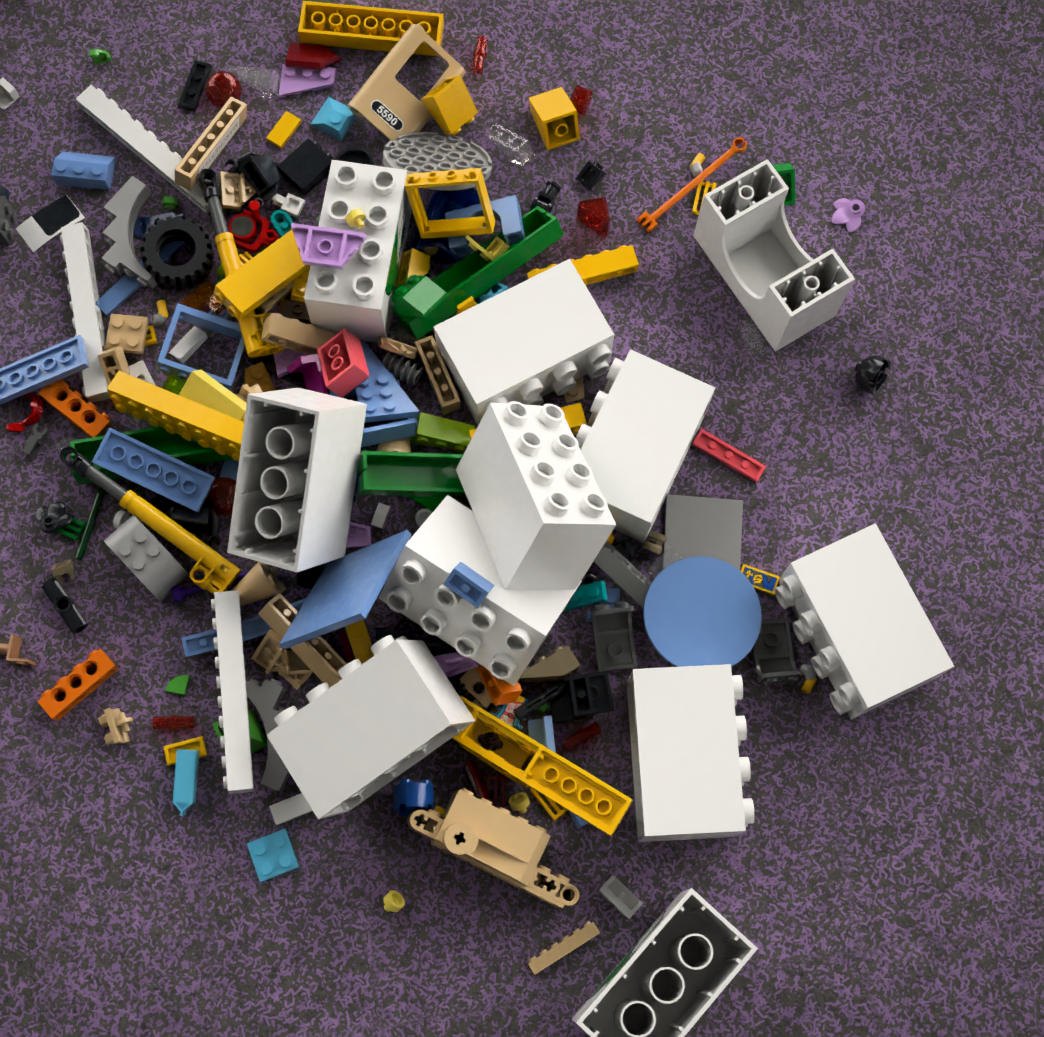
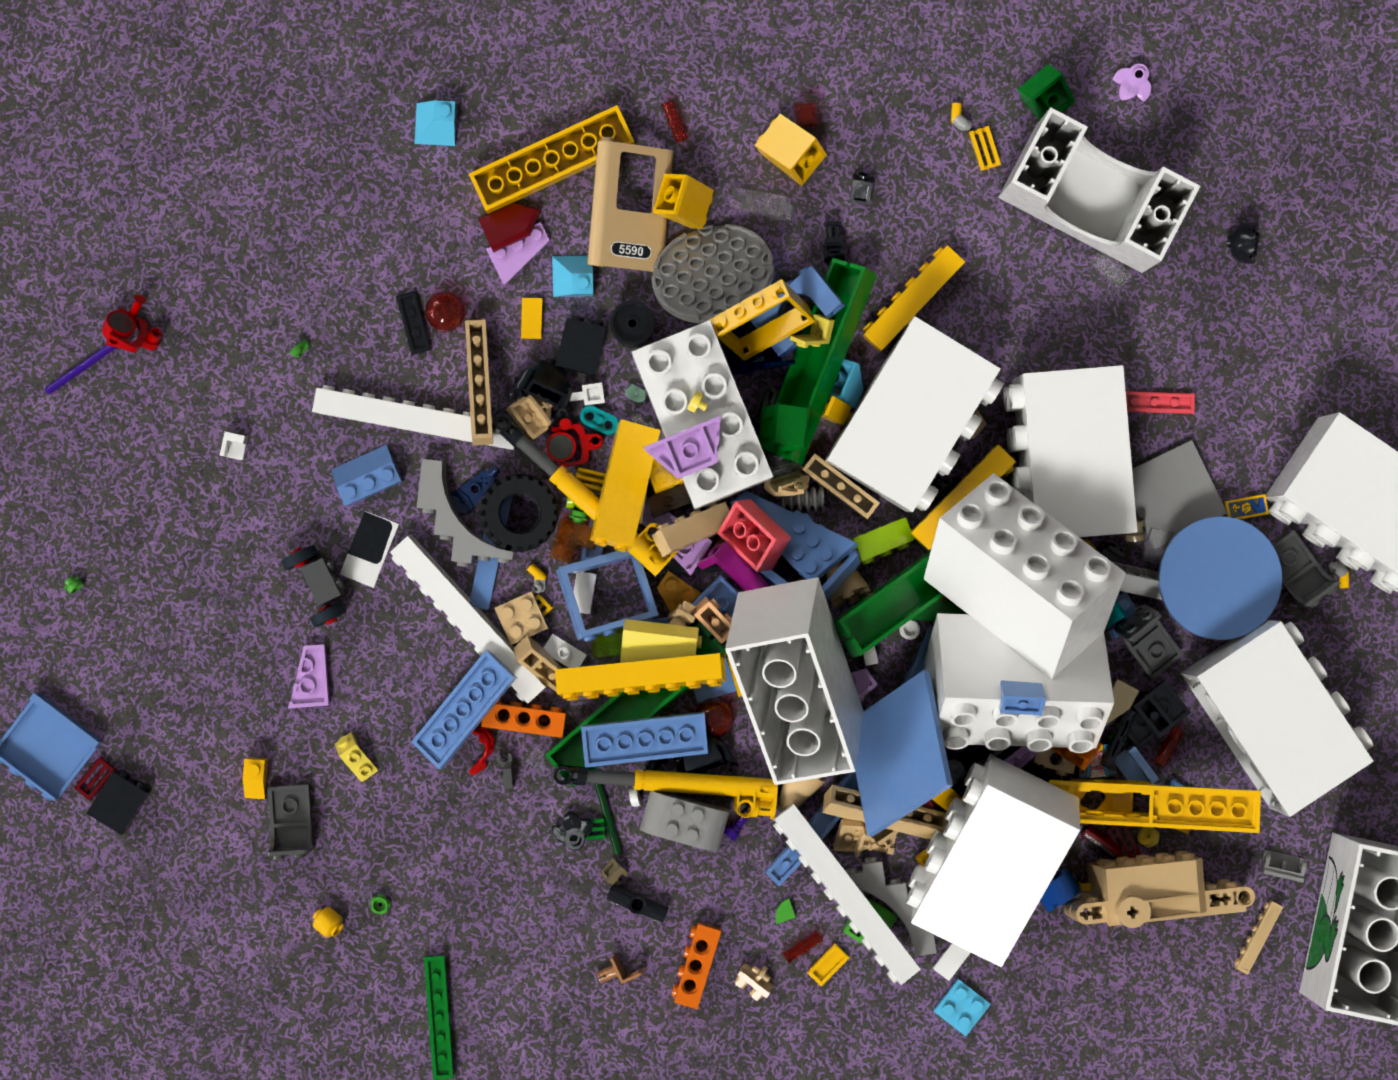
camera: 30 degrees left, 15 degrees up
(170, 202) = (473, 461): bright green plate -> none
(185, 779) = (847, 989): medium azure piece -> none
(262, 80) = (474, 283): clear slope -> none
(393, 901) = (1091, 984): light yellow tile -> none
(412, 263) = (753, 392): yellow slope -> none
(594, 215) = (896, 234): clear red slope -> none
(650, 219) = (945, 202): orange hinge -> none

